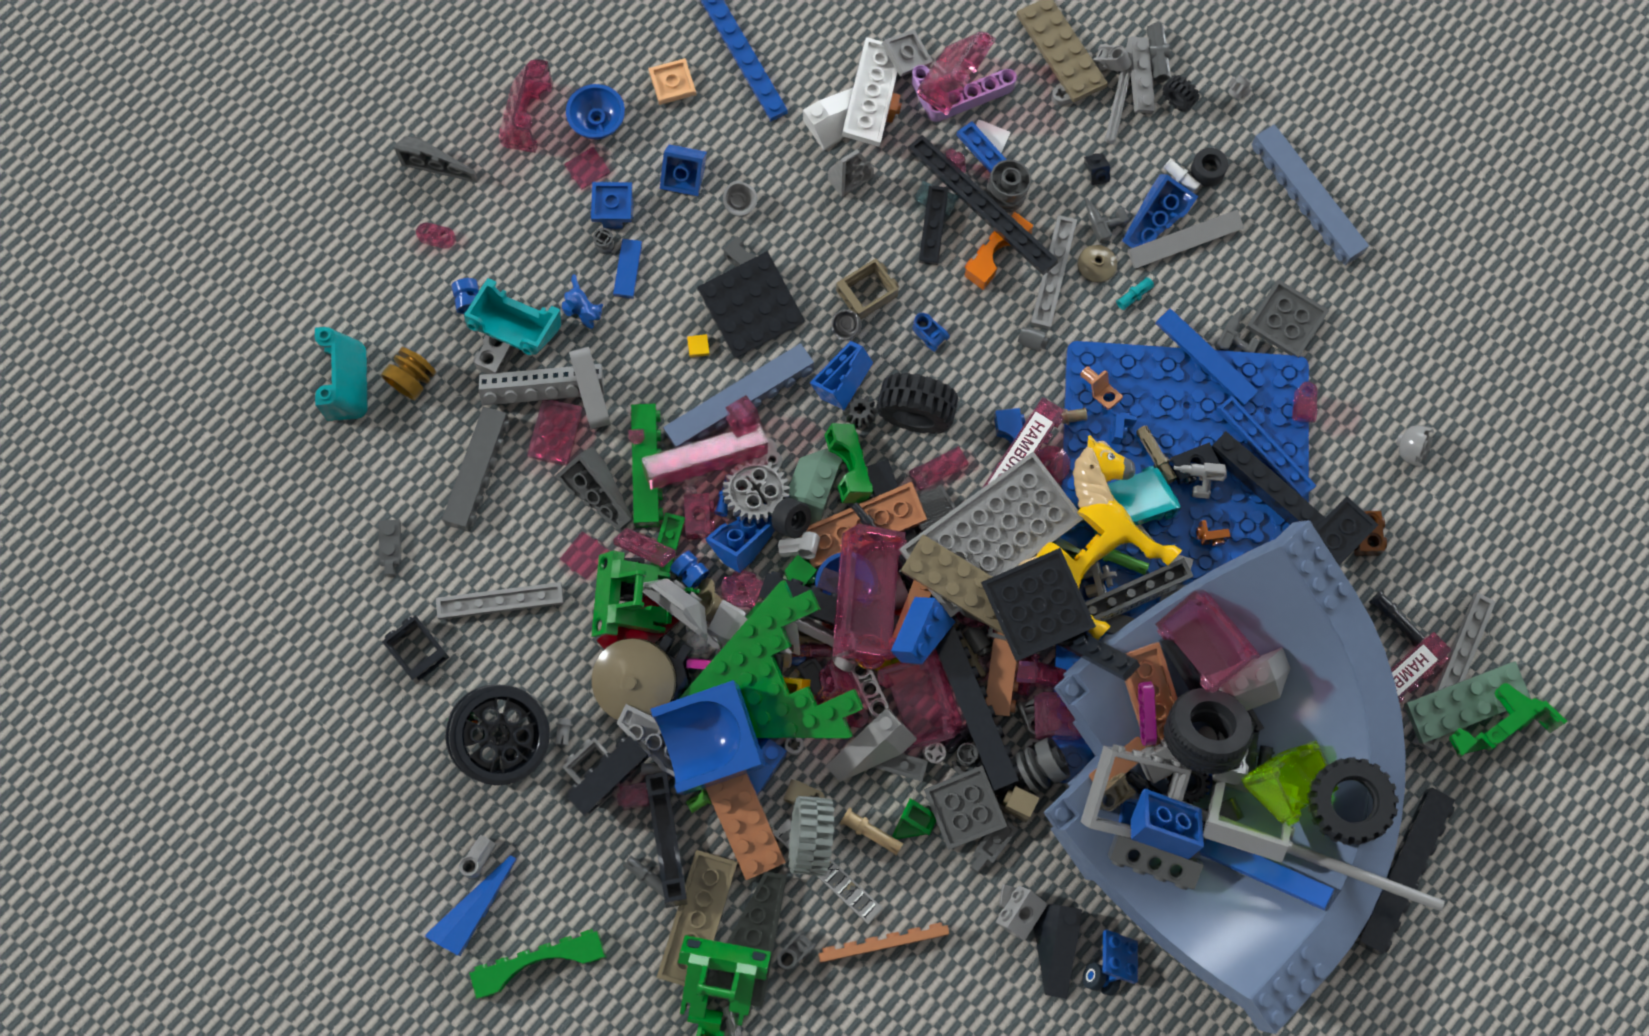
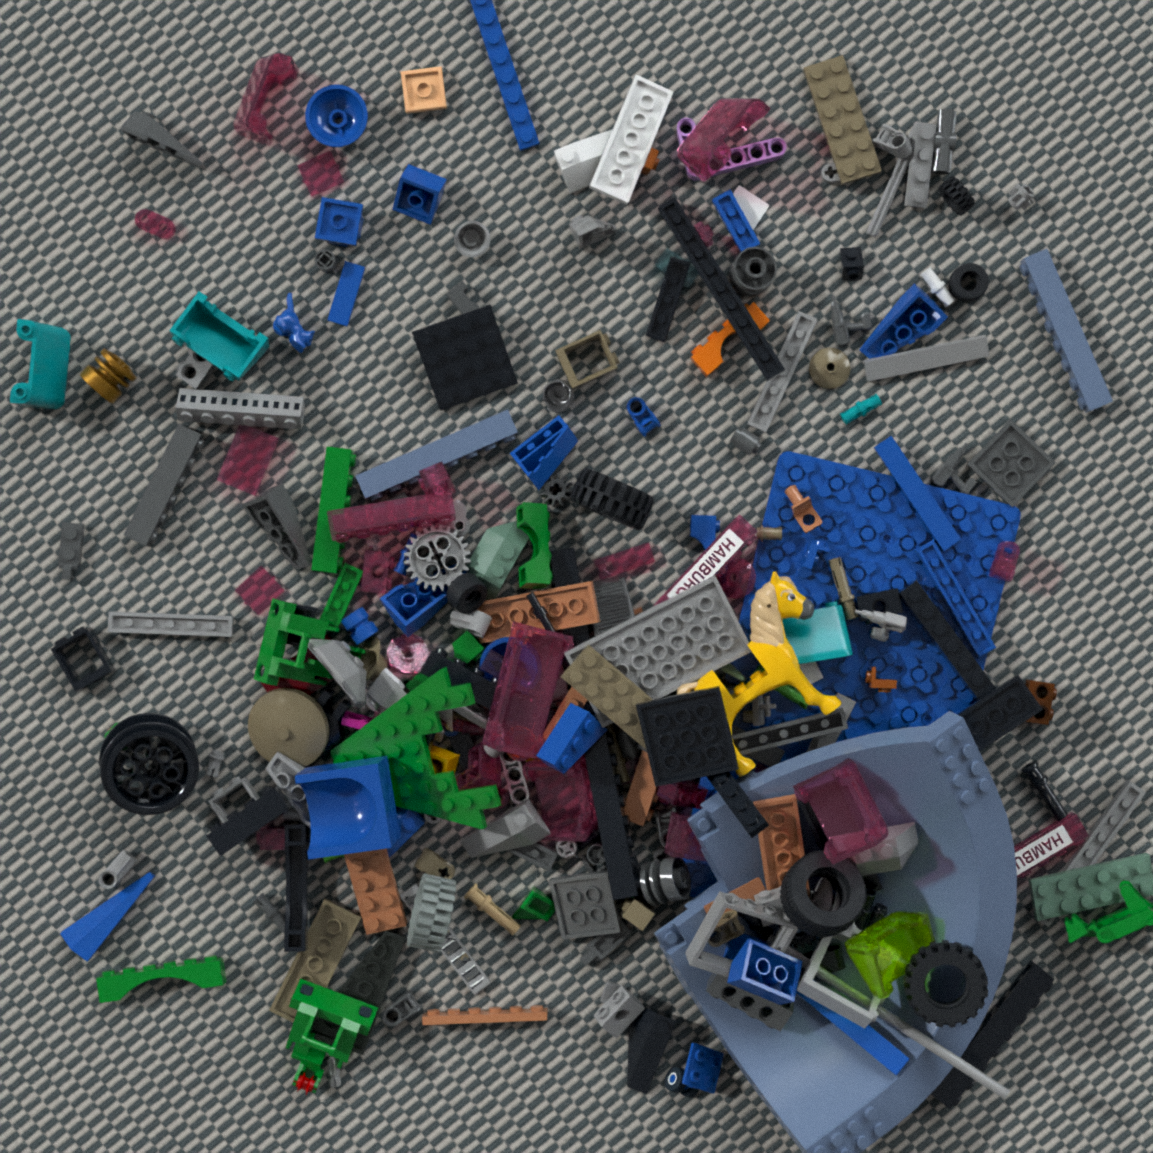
camera: 15 degrees right, 15 degrees up
(464, 291) = (173, 293): blue wheel -> none
(589, 388) = (289, 445): light grey beam -> none
(636, 436) = (326, 482): clear pink hinge -> none
(644, 547) = (318, 596): clear pink tile -> none
(698, 345) = (405, 390): yellow tile -> none
(906, 52) = (676, 99): light grey tile -> none
(1147, 713) = (770, 861): magenta beam -> none
(1415, 444) = (1106, 619): light grey cylinder -> none

